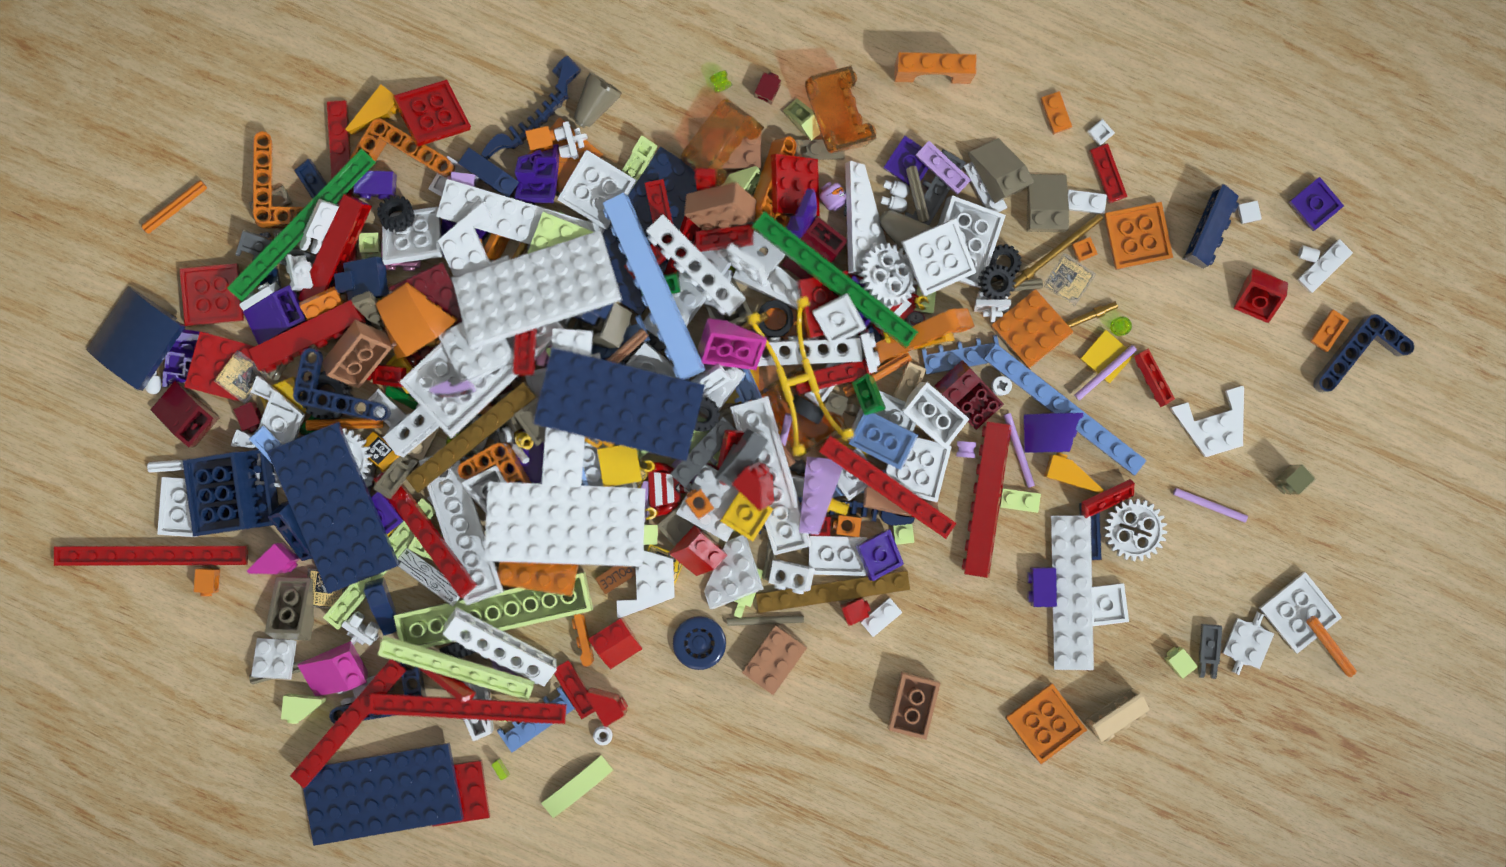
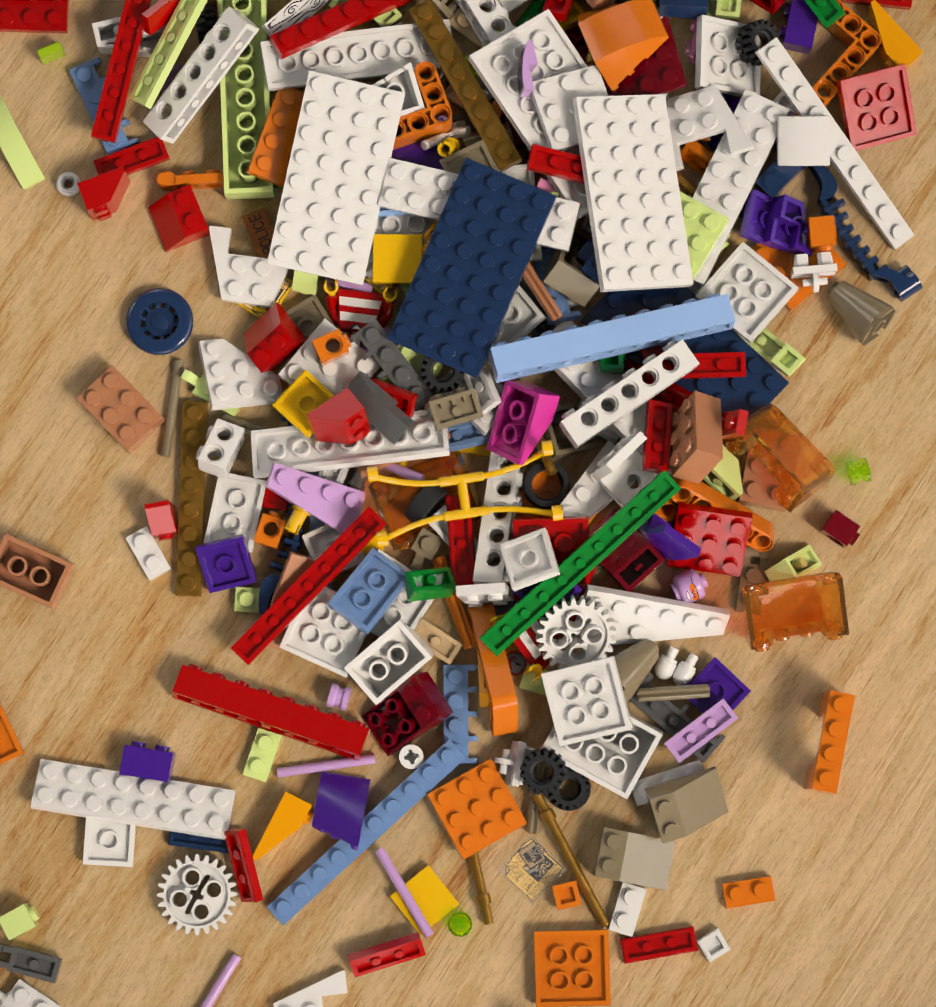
camera: 95 degrees right, 5 degrees down
(466, 141) = (841, 150): none -> white plate
(470, 163) = (803, 141): none -> white slope
(731, 398) = (454, 409): none -> dark tan bracket

